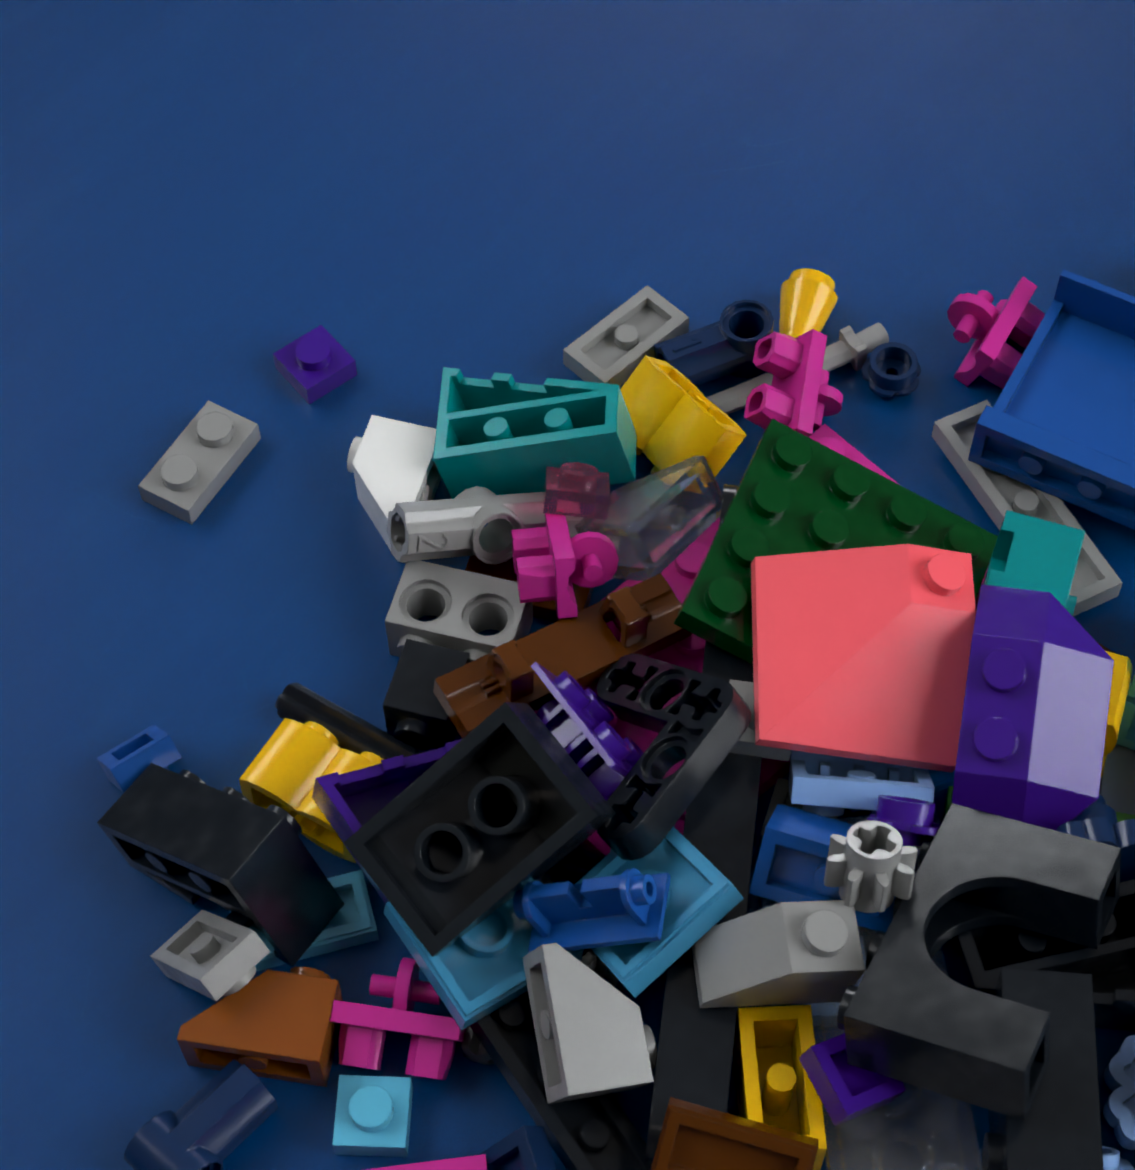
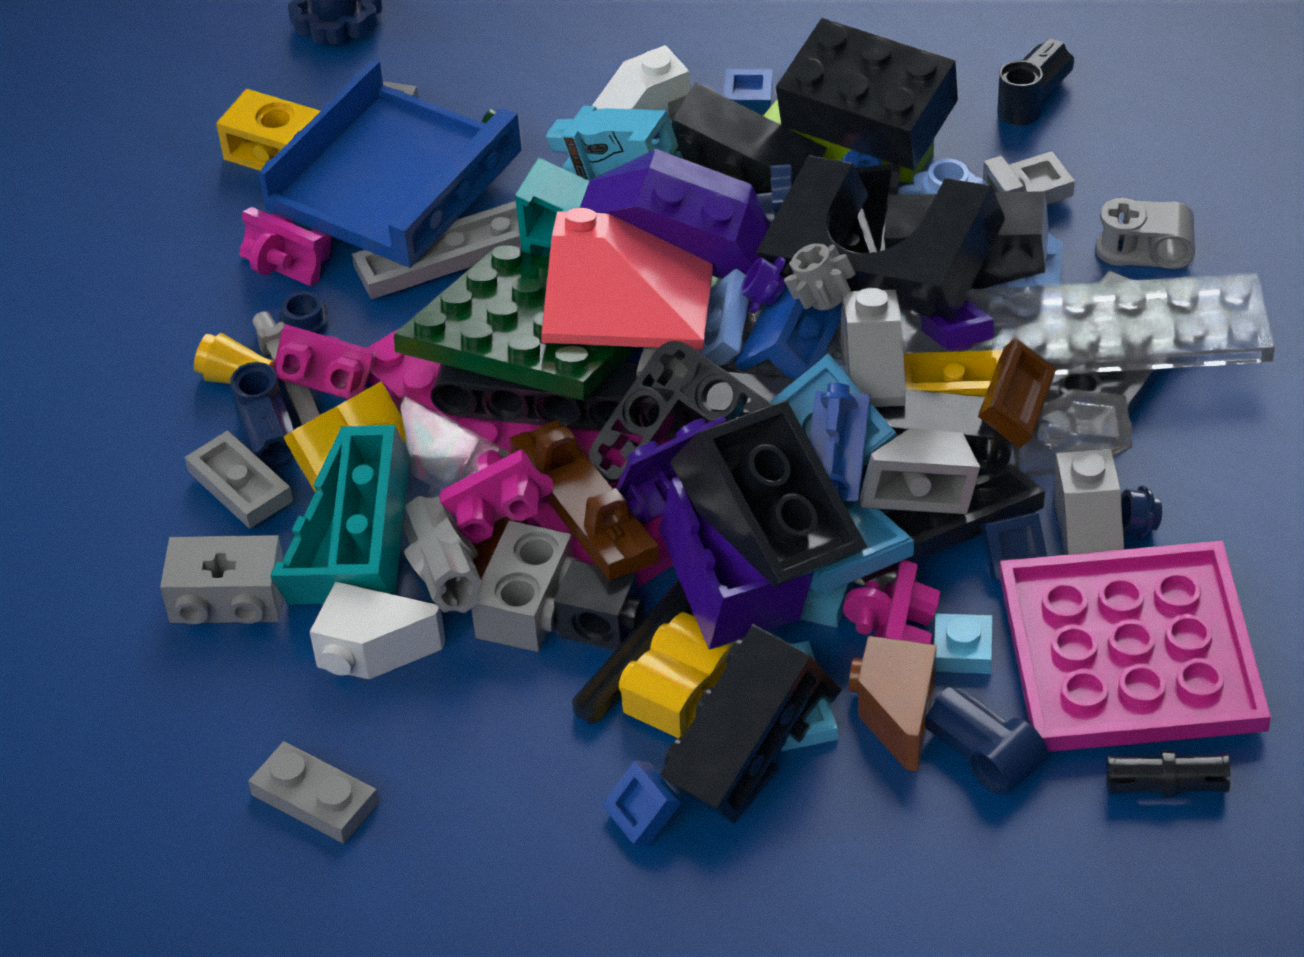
camera: 85 degrees left, 10 degrees down
(211, 955) = (840, 726): light grey plate -> none
(315, 364) = (213, 708): dark purple plate -> none
(470, 329) = (221, 579): none -> light grey brick
(576, 491) = (427, 479): clear pink plate -> none

